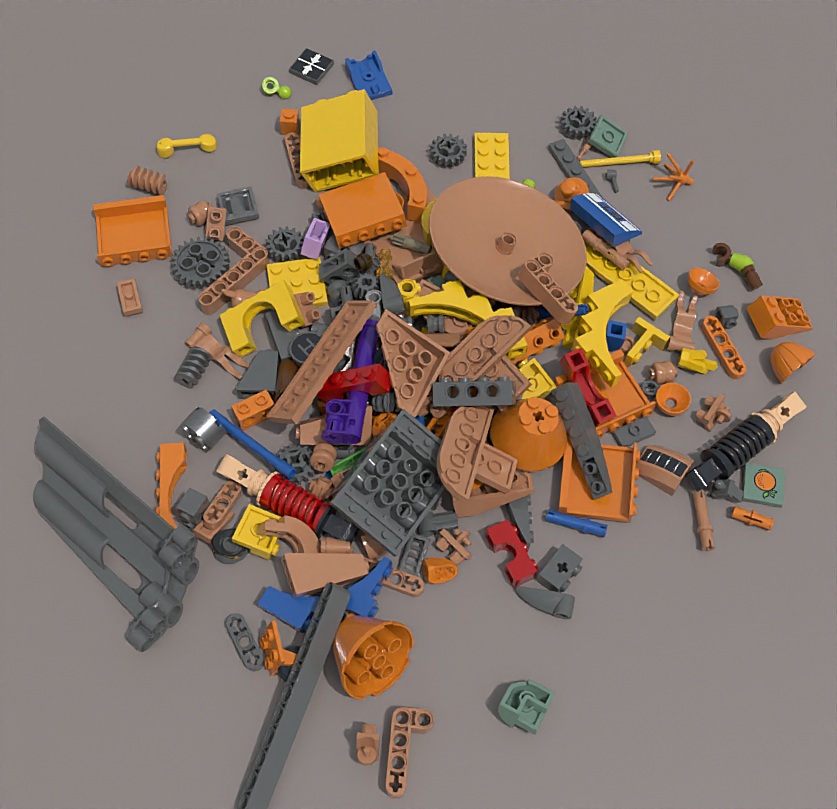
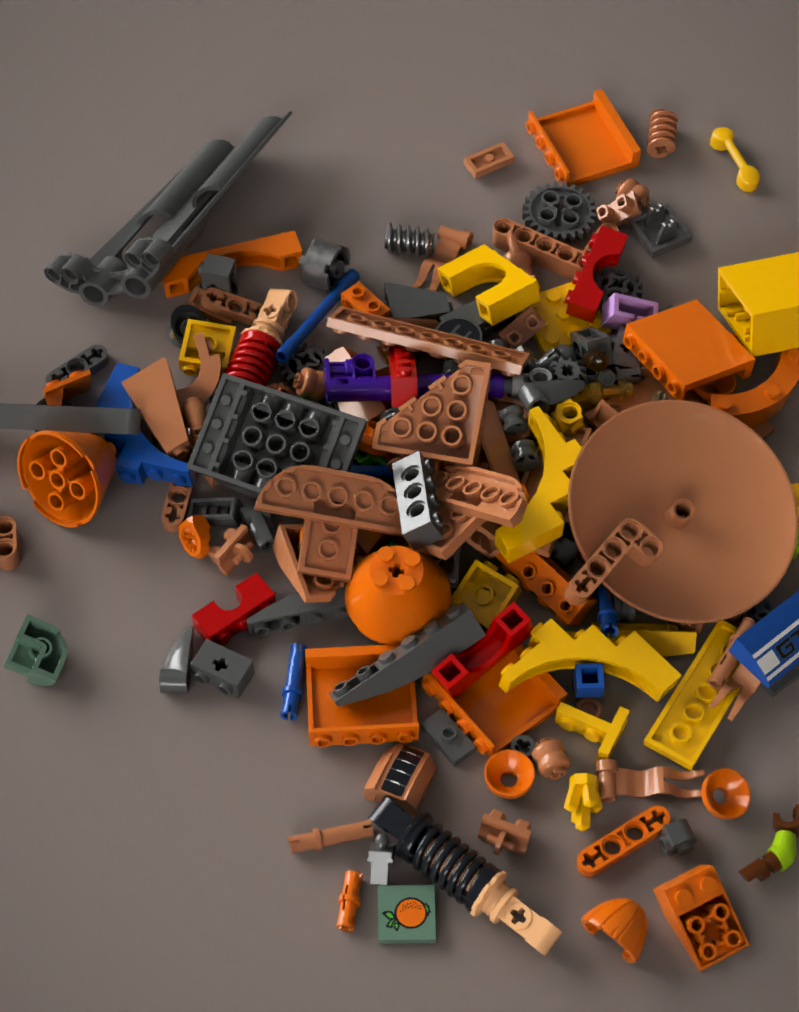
camera: 80 degrees right, 5 degrees down
(294, 260) = (605, 252): none -> red arch

